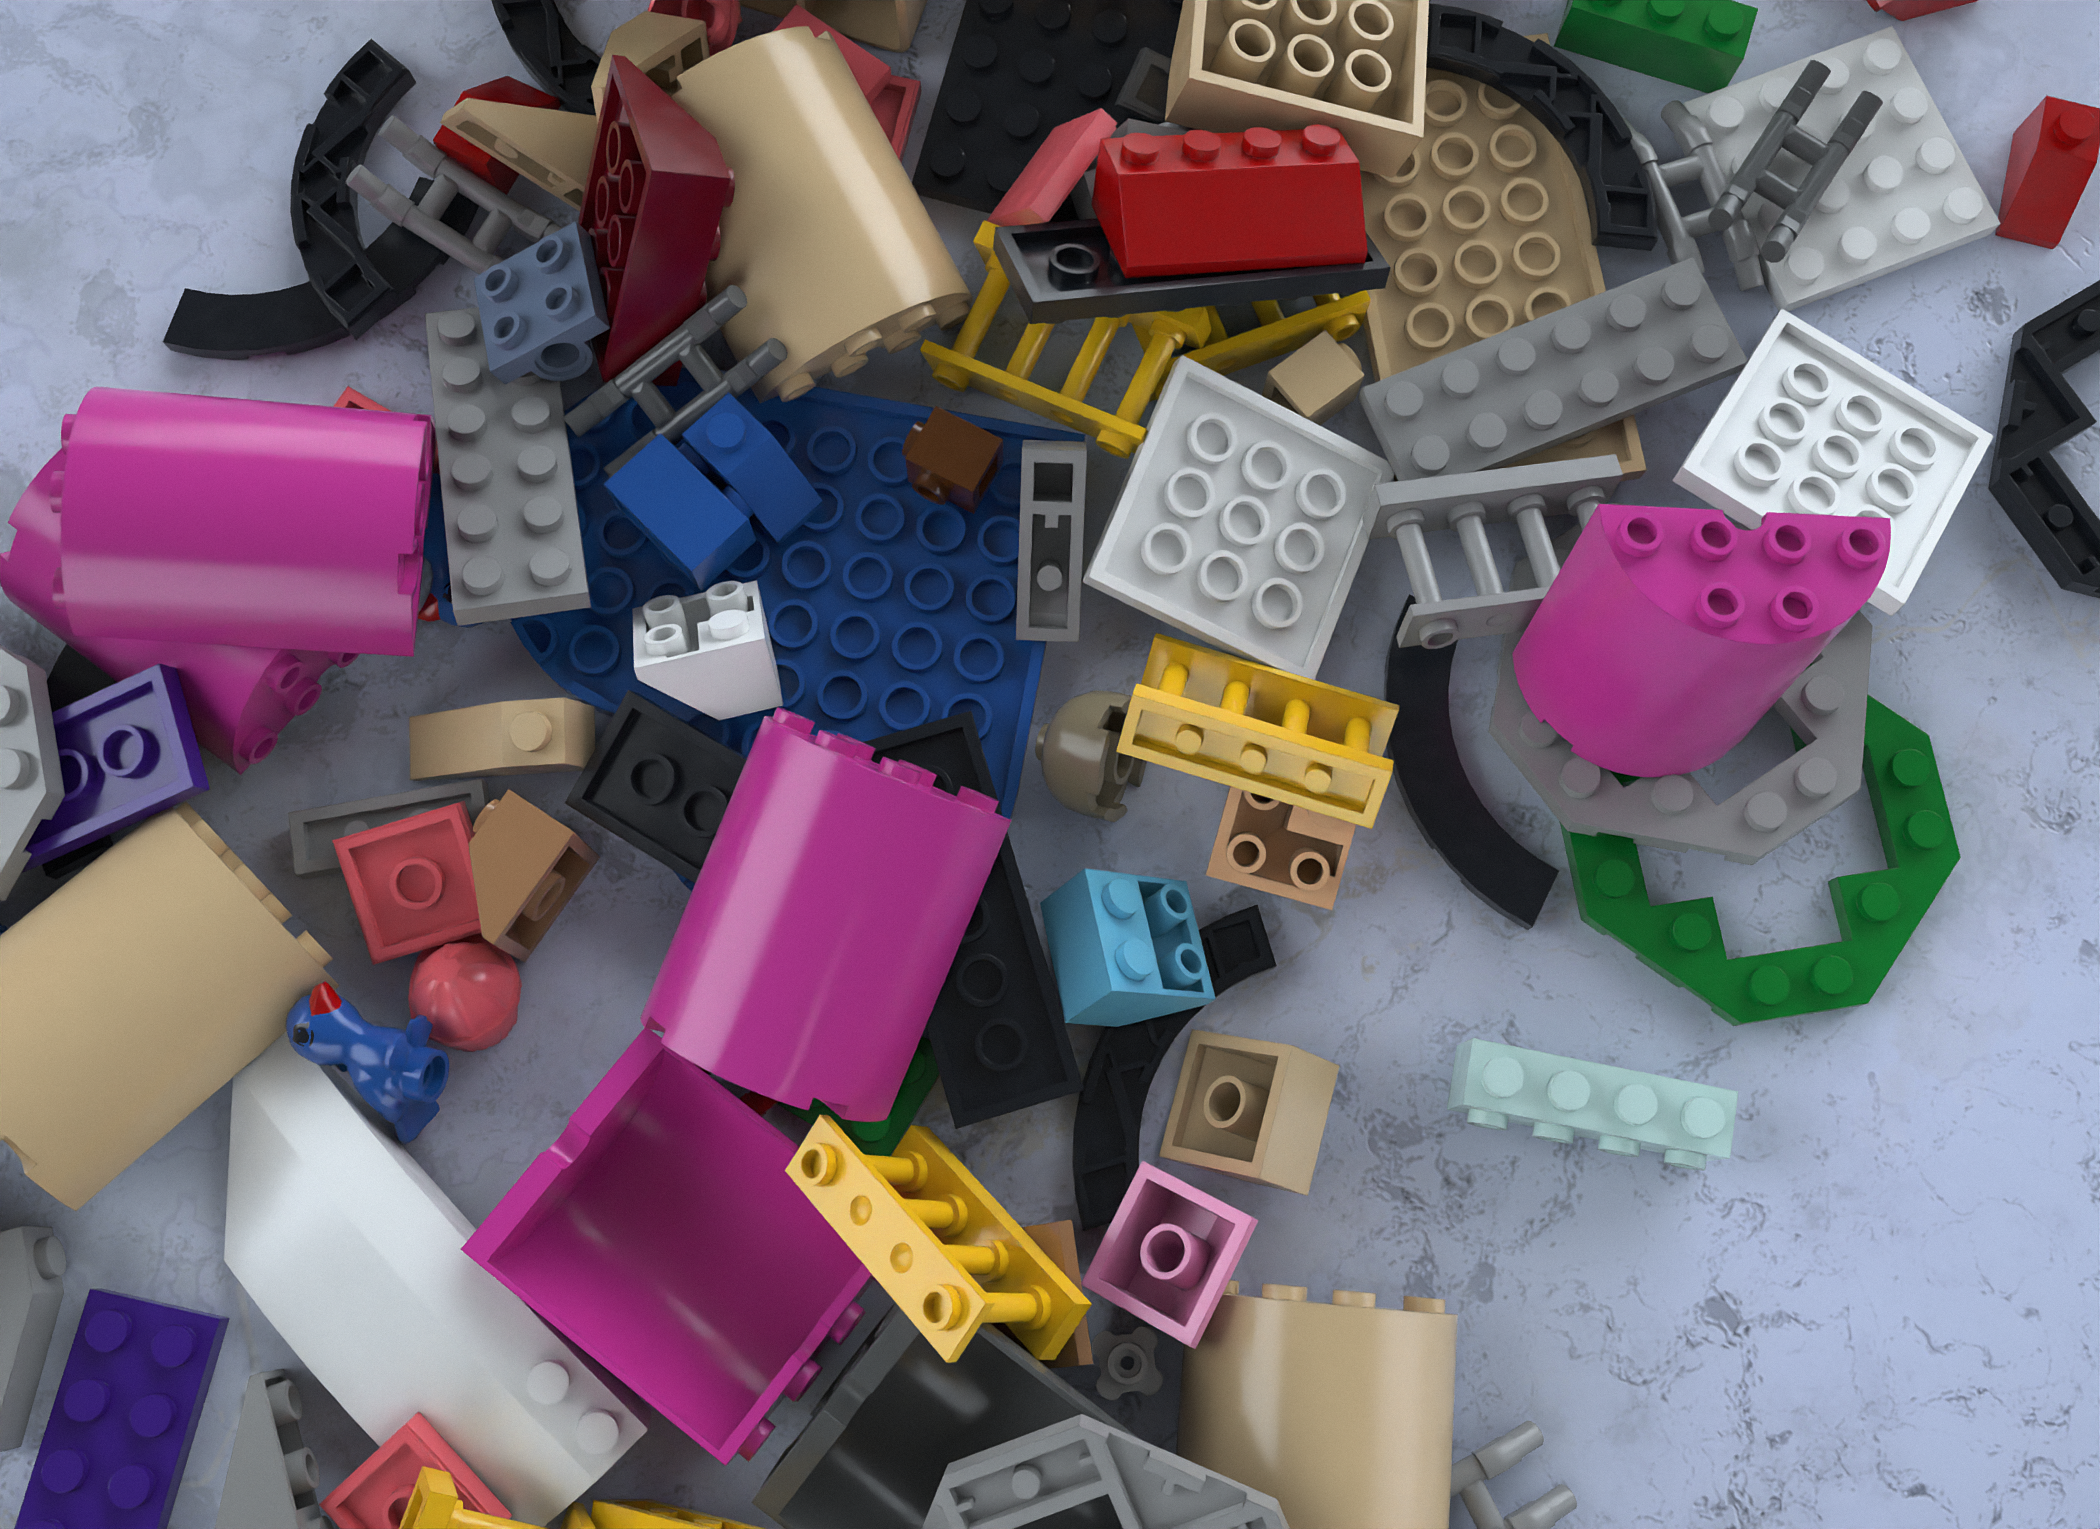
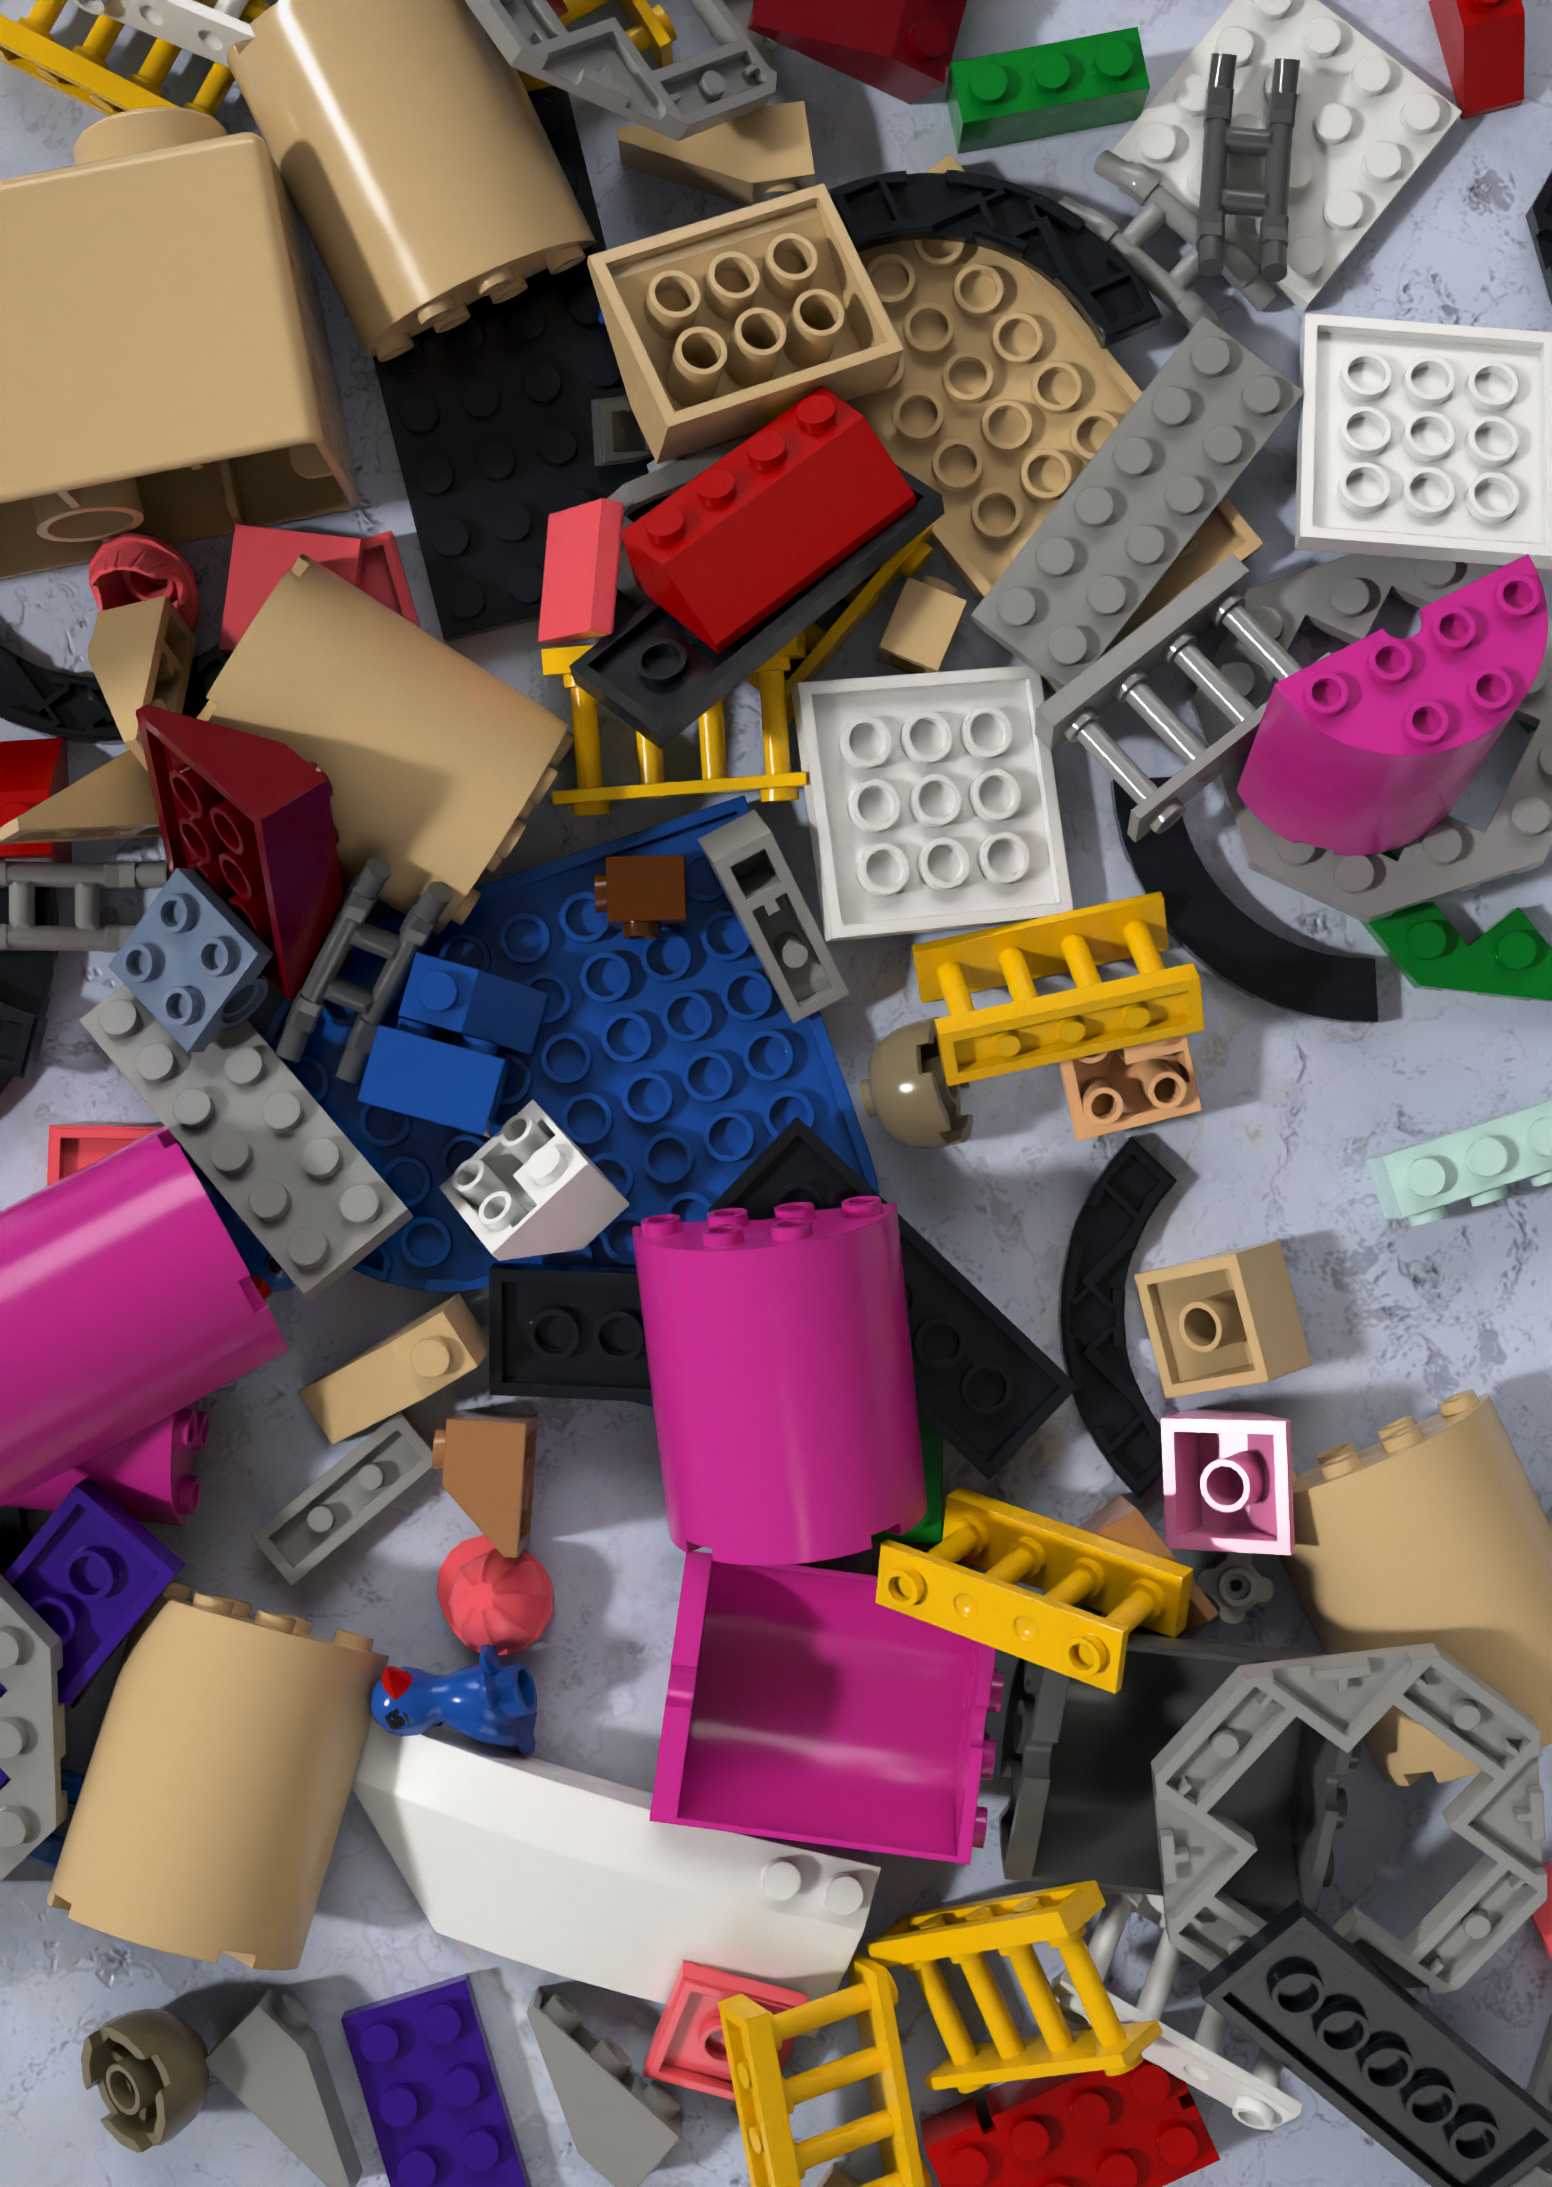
camera: 25 degrees left, 10 degrees up
(412, 882) = (399, 1532): coral tile -> none
(1125, 948) = (1043, 1243): medium azure slope -> none

